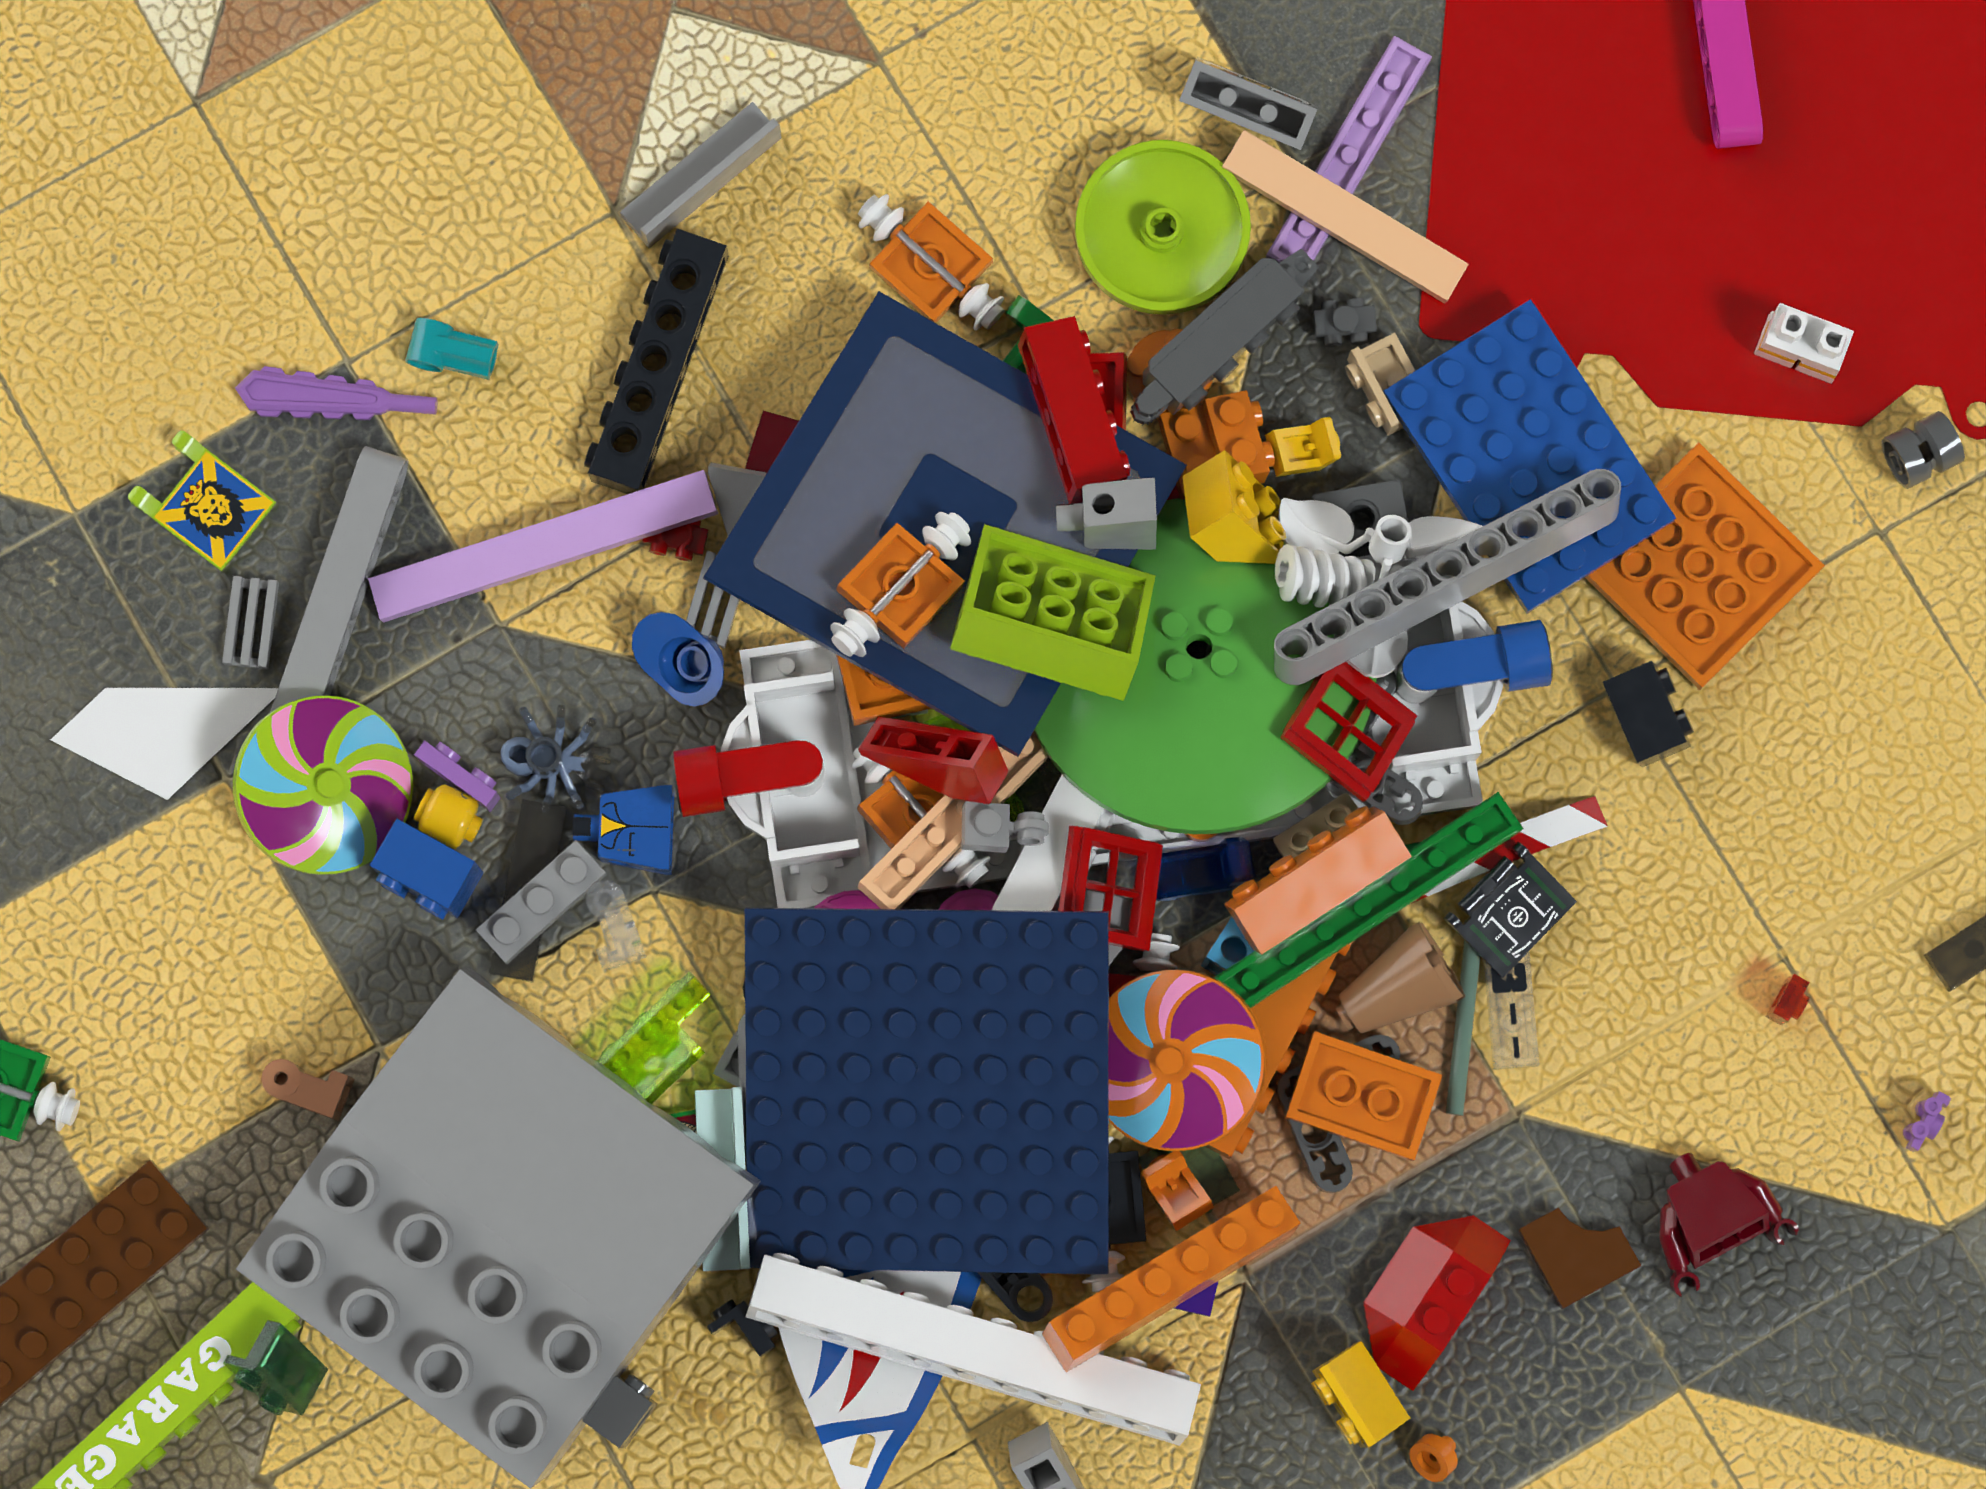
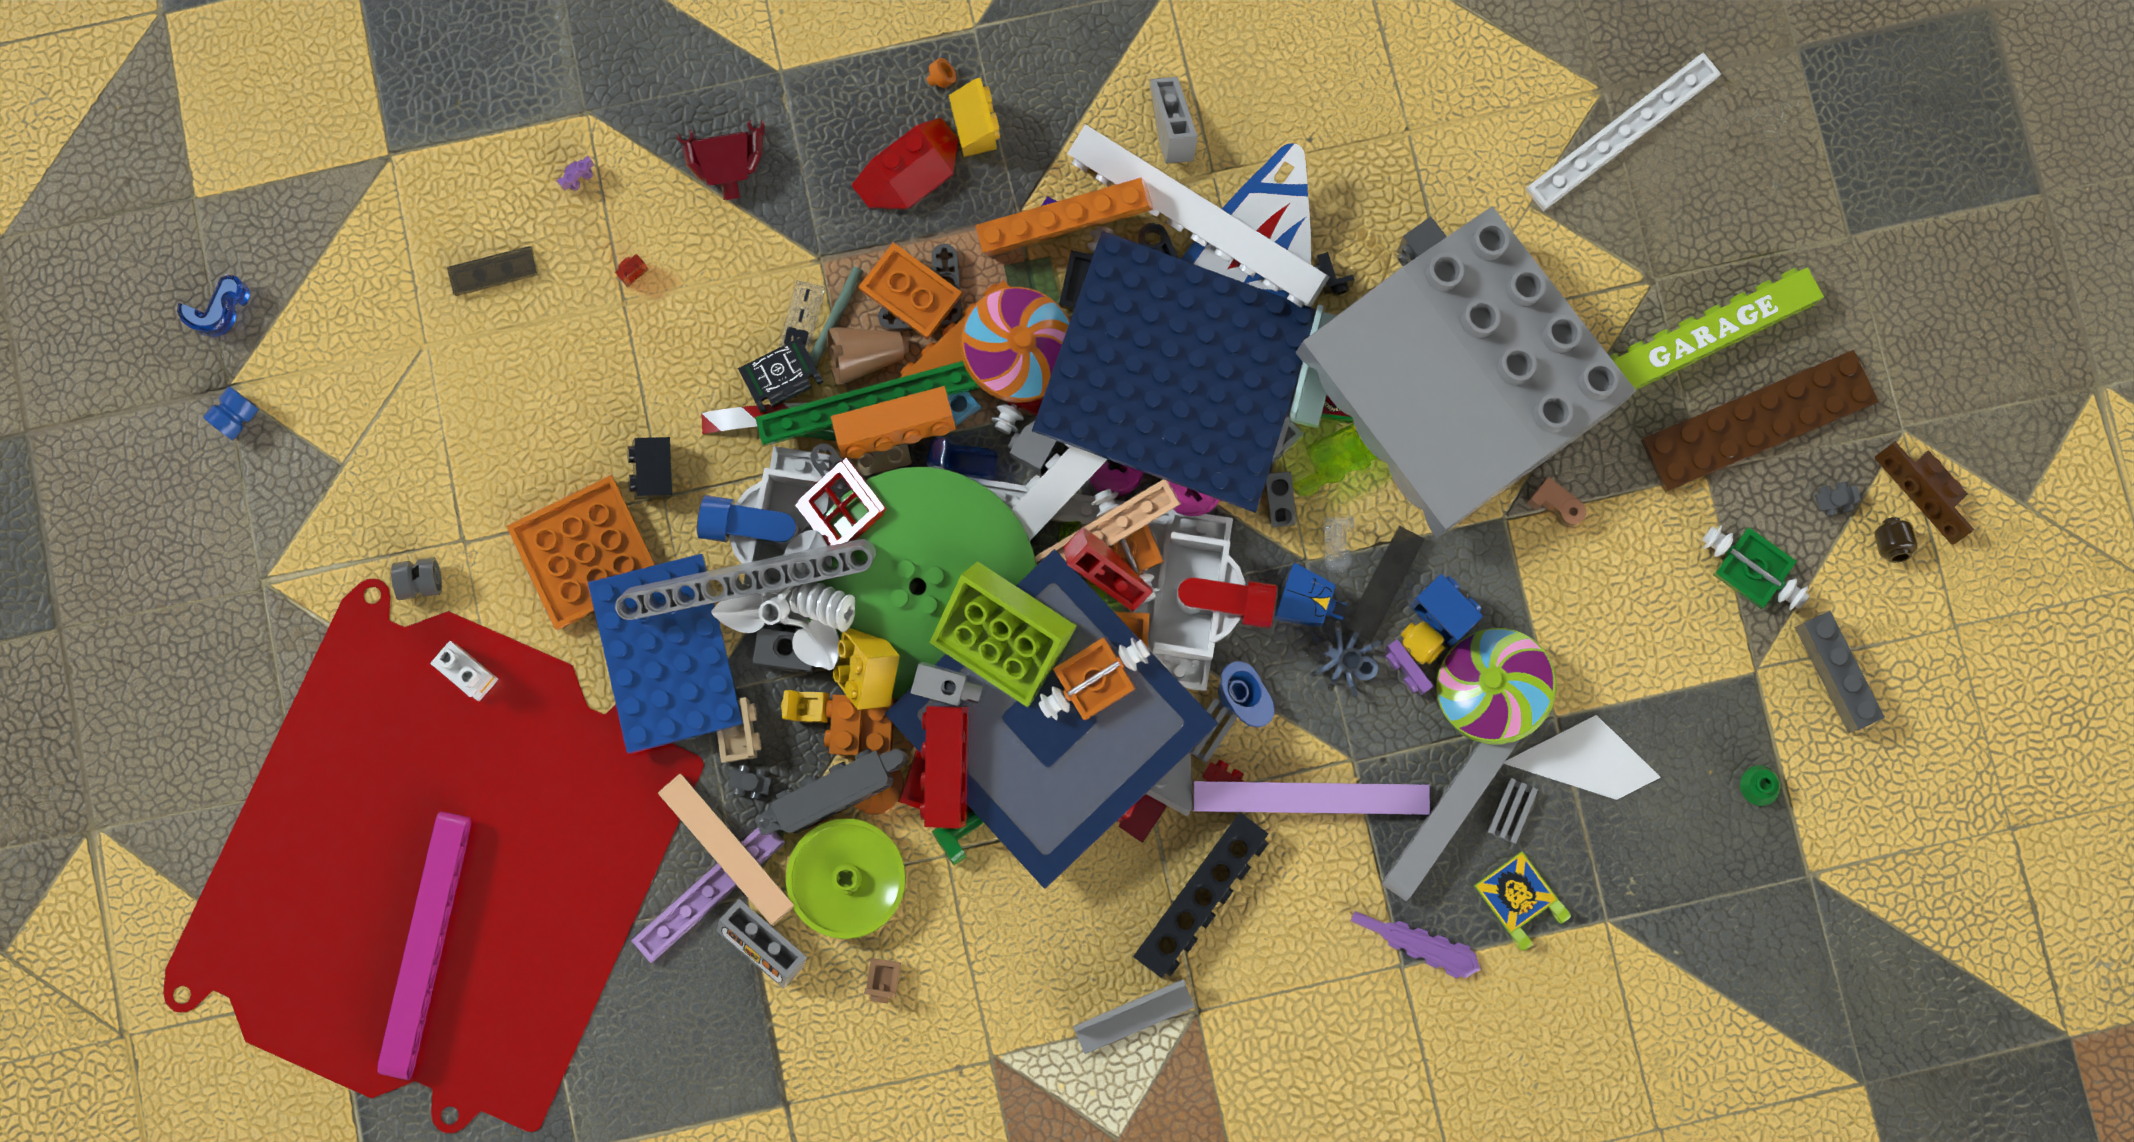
camera: 155 degrees left, 0 degrees up
(278, 1371) = (1623, 333): clear green bracket -> none
(439, 347) = (1338, 951): teal piece -> none
(541, 902) = (1379, 570): light grey plate -> none
(717, 964) = (1280, 499): none -> dark grey leg
(930, 262) = (1003, 906): orange plate -> none
(989, 827) = (1084, 515): light grey plate -> none
(1064, 110) = (882, 980): none -> medium nougat bracket
(1144, 888) = (1004, 452): red piece -> none
(1176, 1189) = (1043, 272): orange bracket -> none
(1576, 1258) = (816, 162): reddish brown tile -> none

